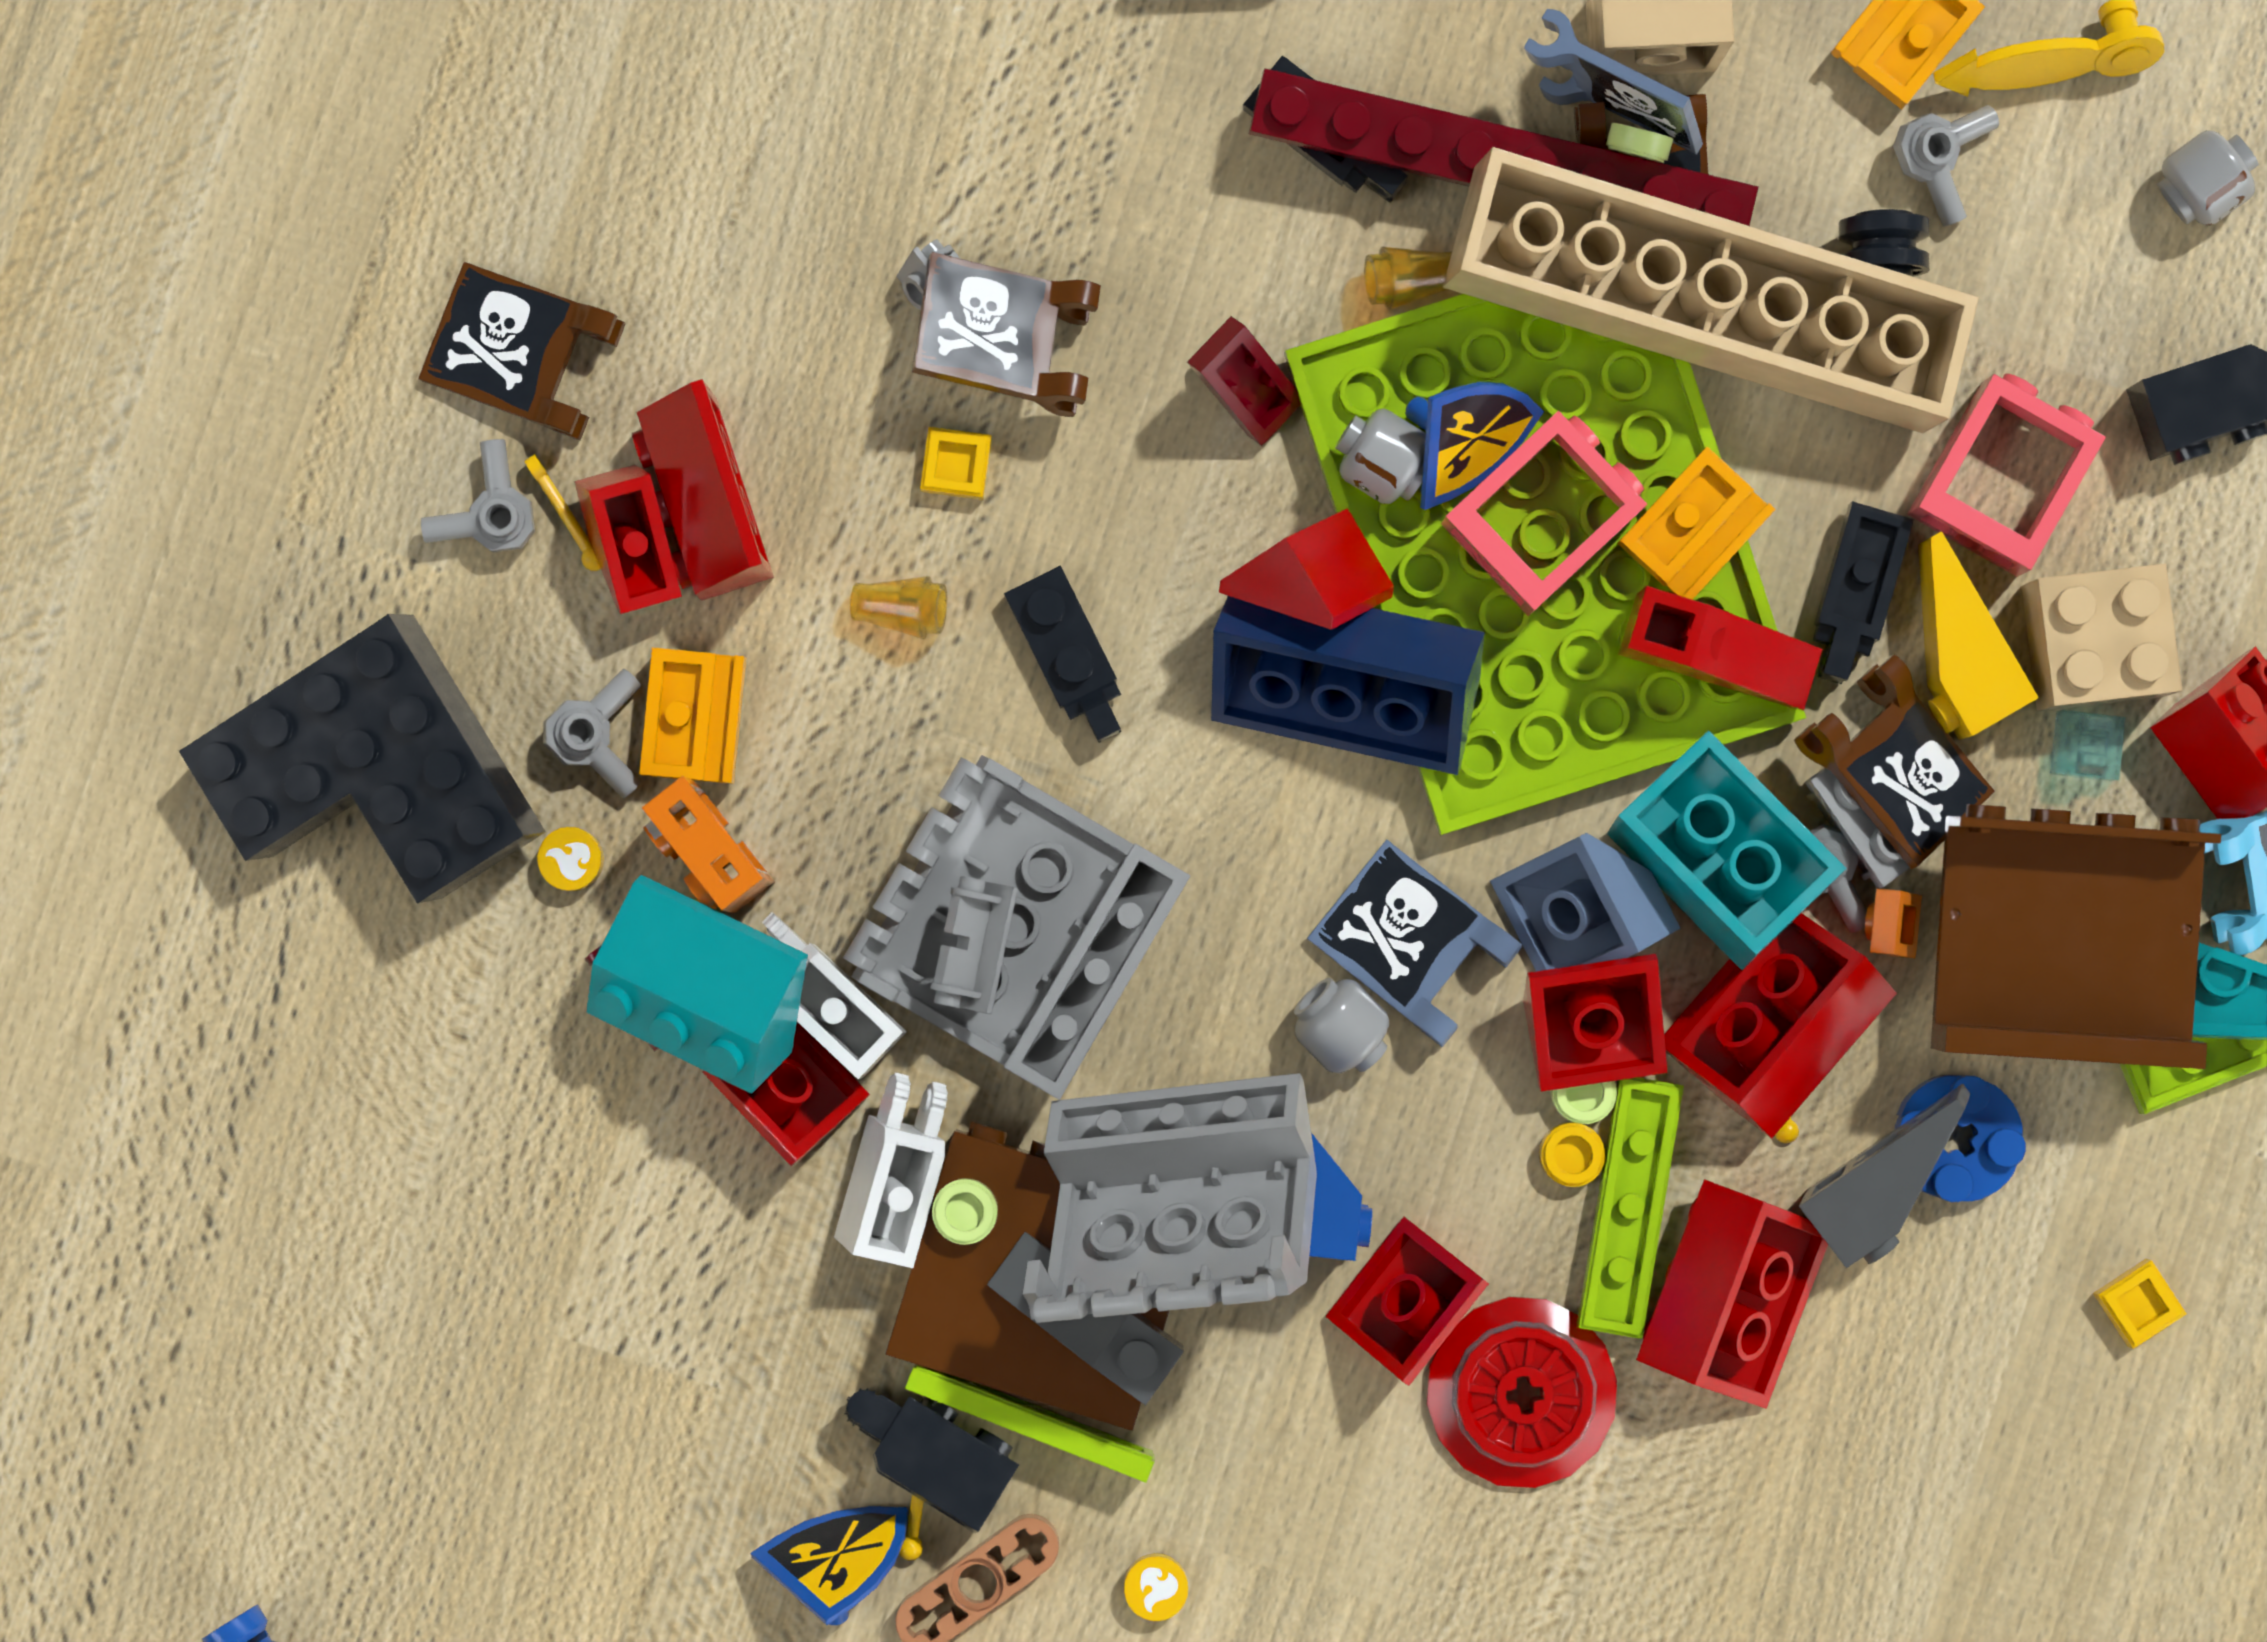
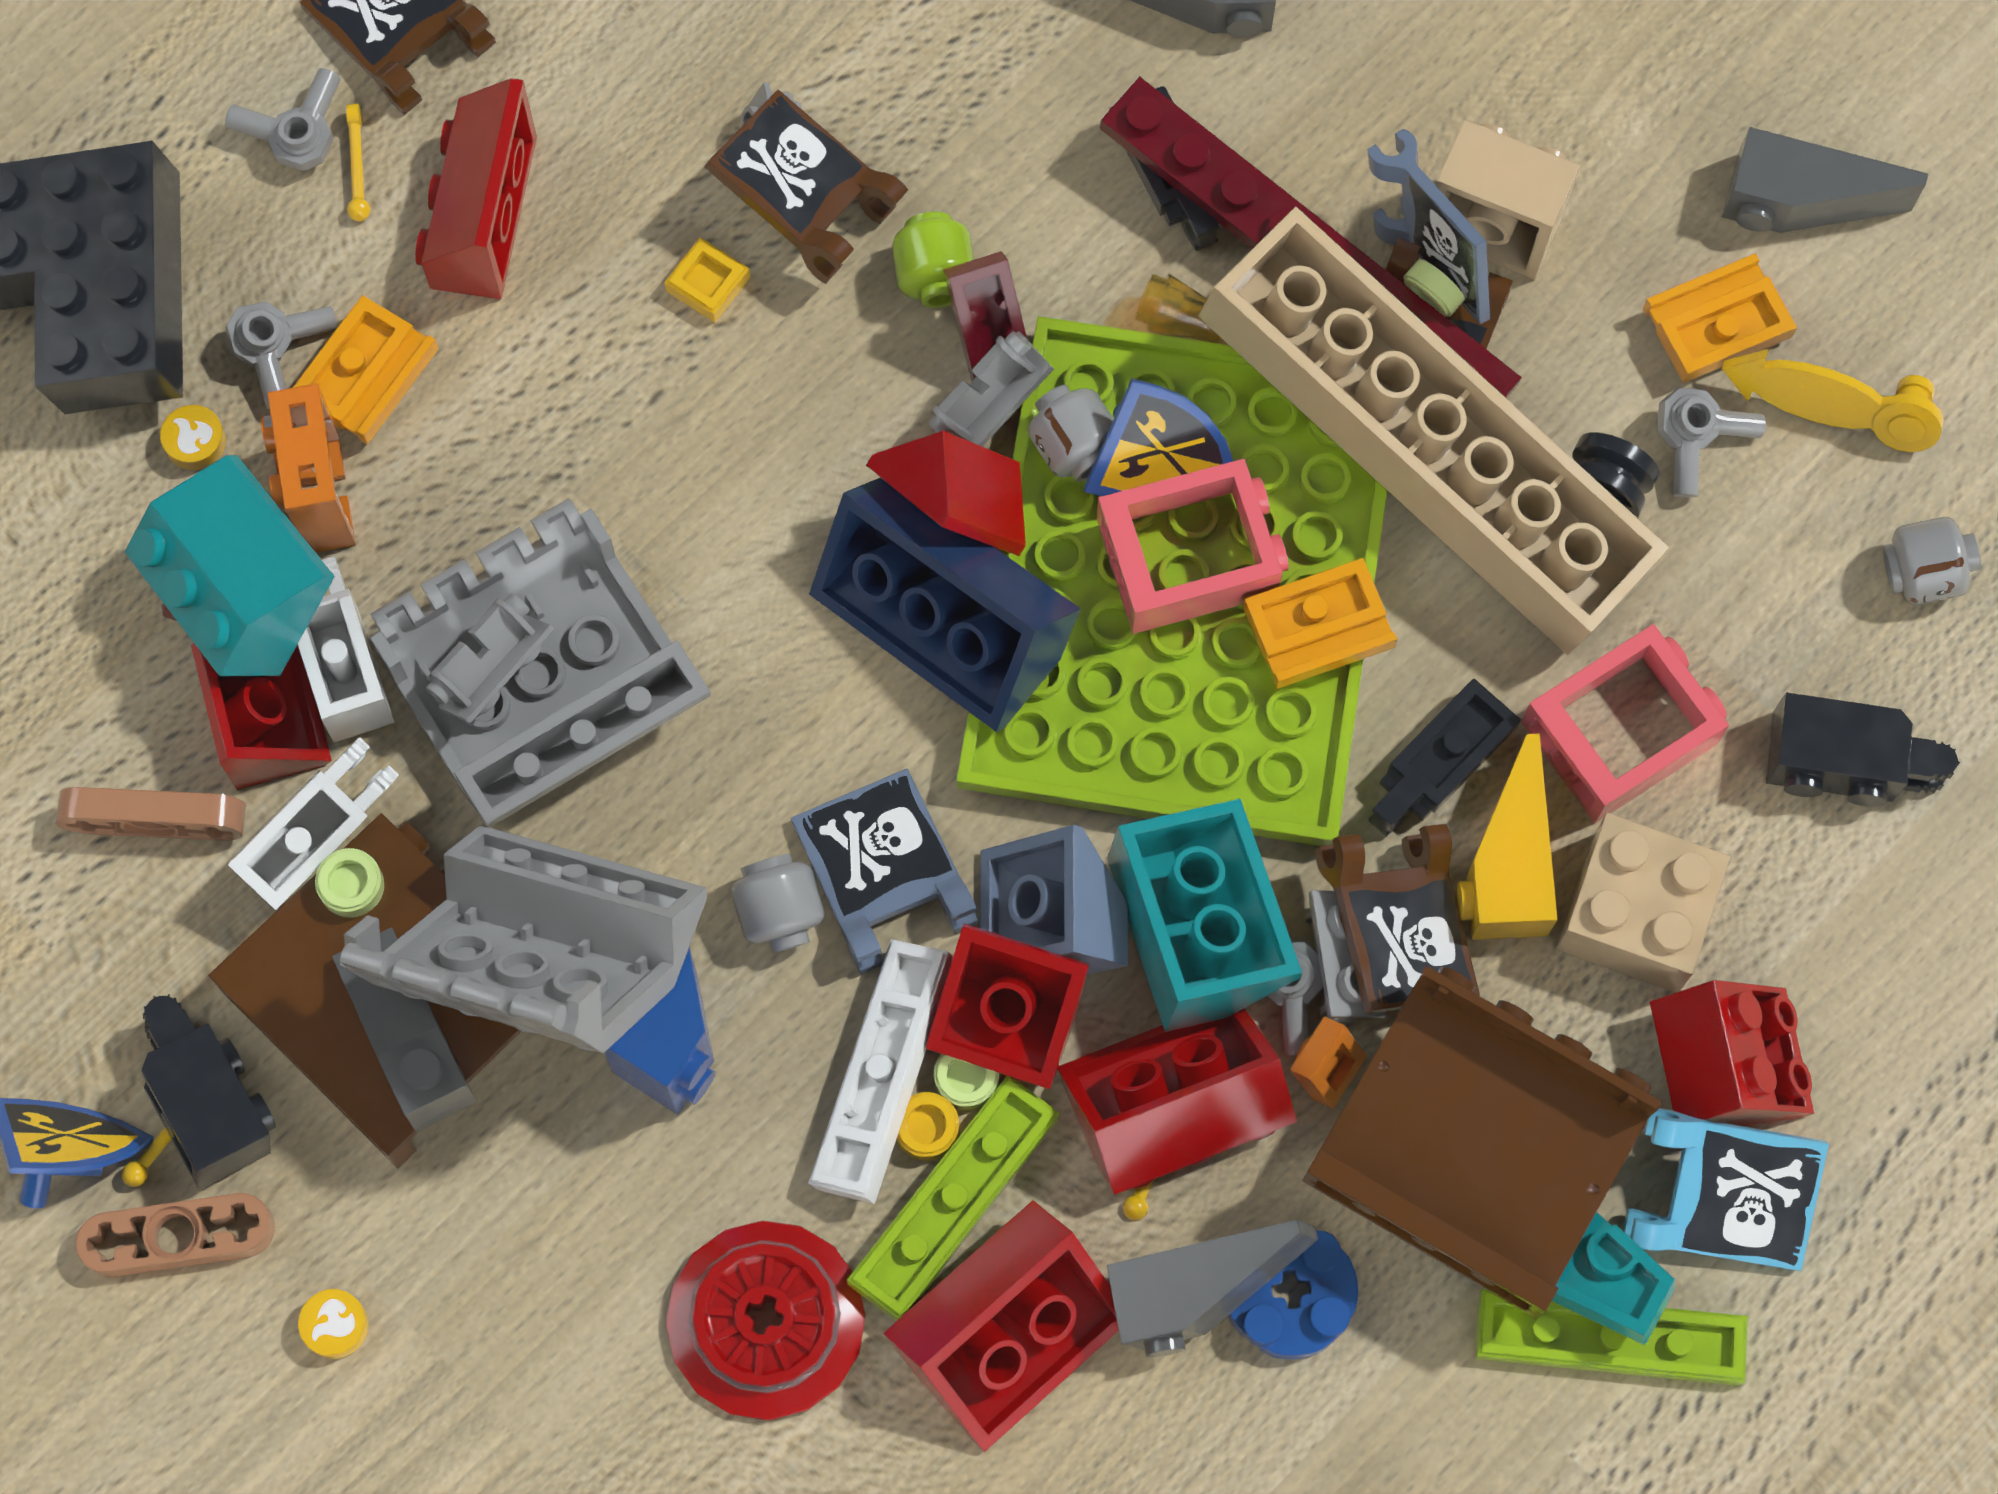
camera: 25 degrees right, 15 degrees down
(628, 537) = (394, 196): red slope -> none
(741, 1229) = (150, 813): none -> nougat beam
(902, 605) = (596, 367): clear yellow cone -> none
(1033, 1422) = (306, 1109): lime tile -> none
(1067, 649) = (715, 474): black hinge -> none
(1158, 341) = (923, 250): none -> lime head
(1284, 451) = (1001, 385): none -> light grey hinge
(1406, 1300) = (705, 1178): red slope -> none
(1512, 1128) = (881, 1072): none -> white plate
(1719, 648) = (1284, 729): red slope -> none
(2087, 745) = (1586, 998): clear light blue tile -> none

